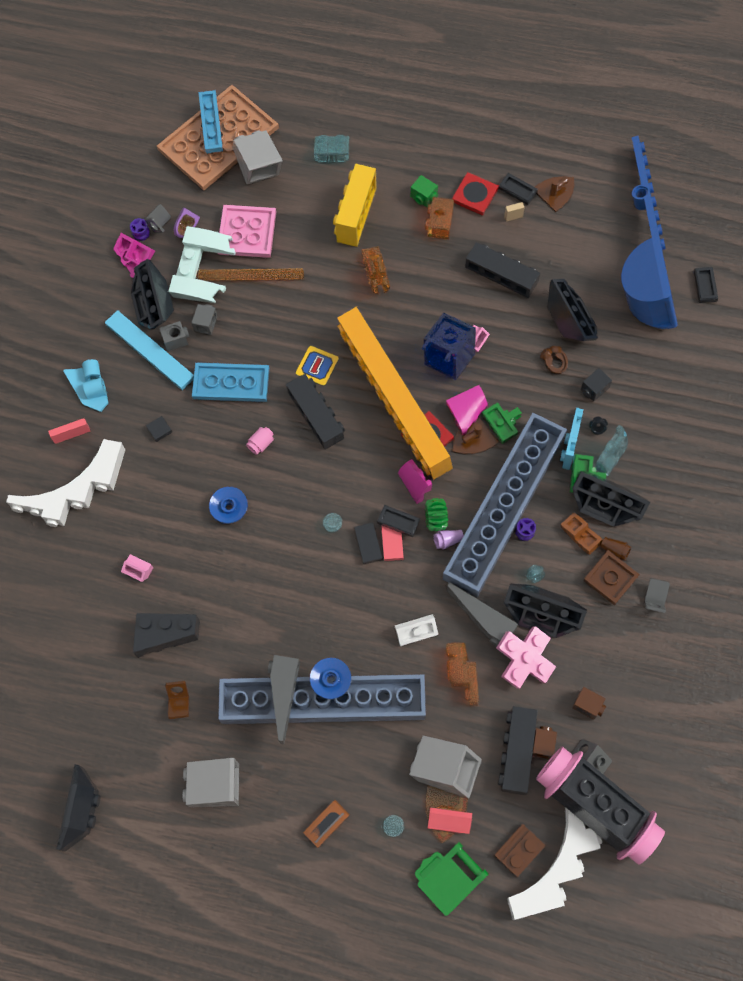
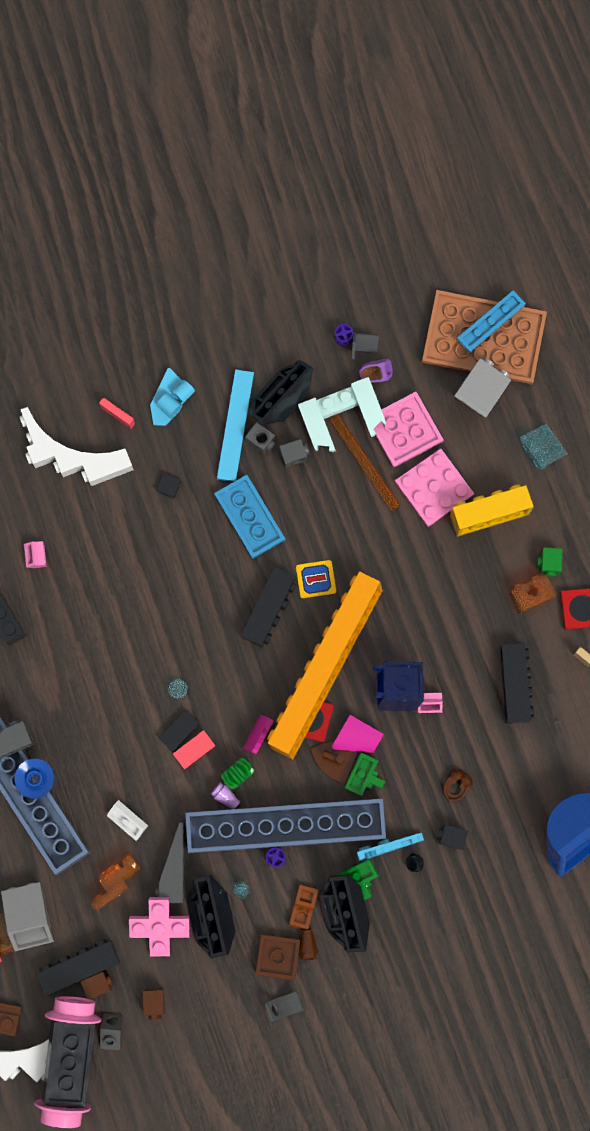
camera: 55 degrees right, 10 degrees up
(132, 252) = (317, 346): dark pink slope -> none
(225, 497) = (134, 582): blue dish -> none
(260, 440) = (211, 578): bright pink brick -> none
(307, 239) = (434, 487): none -> bright pink plate
(375, 269) = (441, 569): clear orange plate -> none
(398, 521) = (213, 744): black tile -> none
(570, 312) = (510, 774): black wedge -> none
(612, 451) = (394, 891): clear light blue slope -> none

